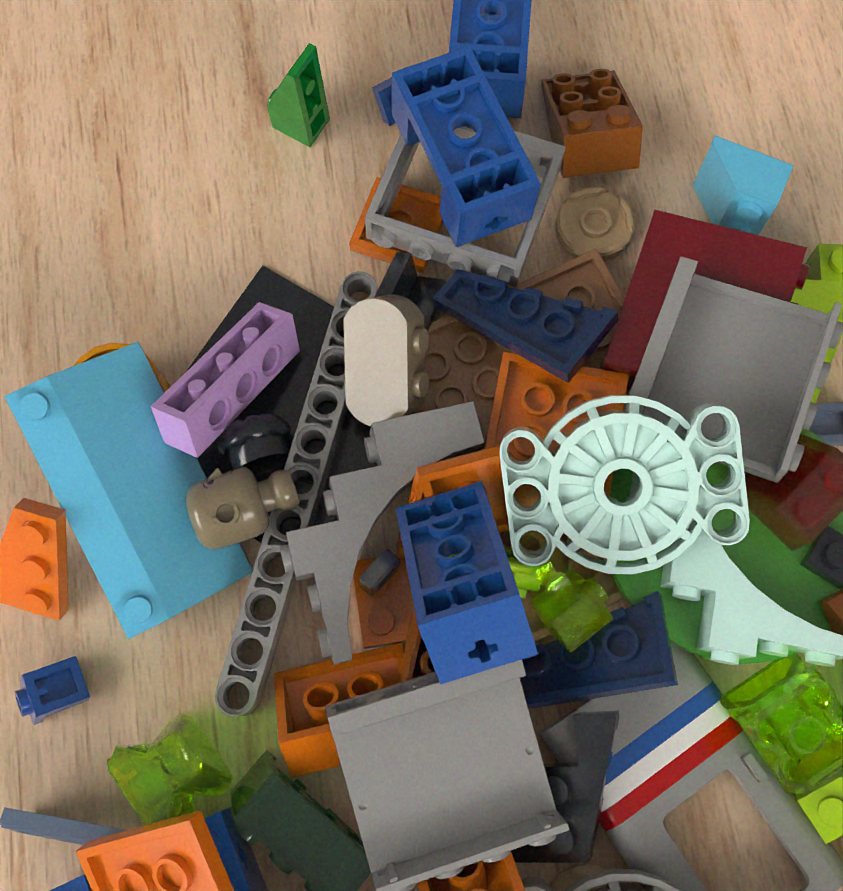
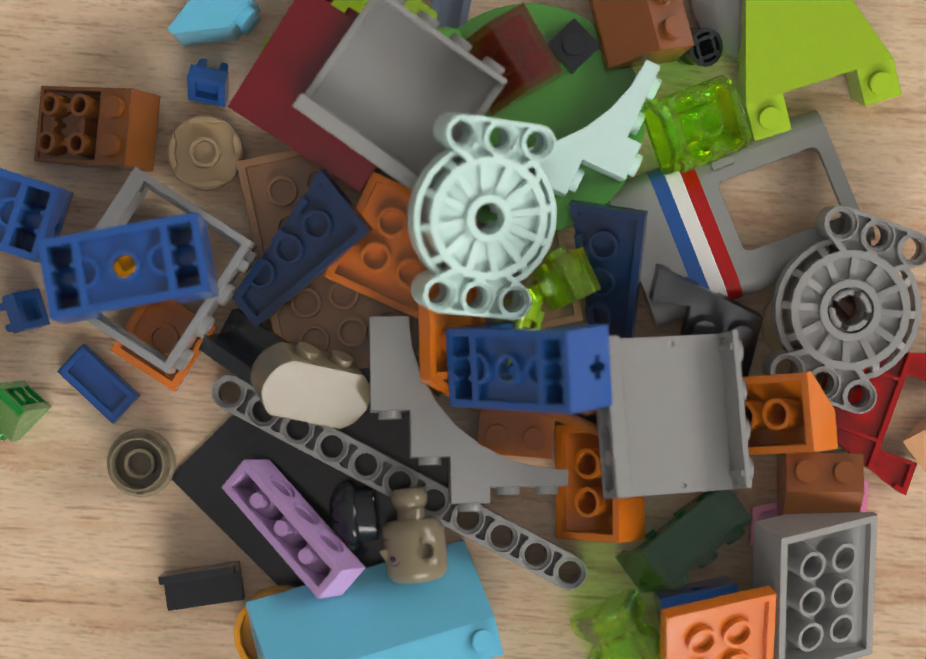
camera: 85 degrees left, 15 degrees up
(158, 317) = (203, 585): none -> black panel
(270, 228) = (141, 462): none -> dark tan piece
(341, 180) = (98, 383): none -> blue tile
(379, 572) = (496, 430): dark grey tile -> none
(665, 198) = (208, 84): none -> blue tile

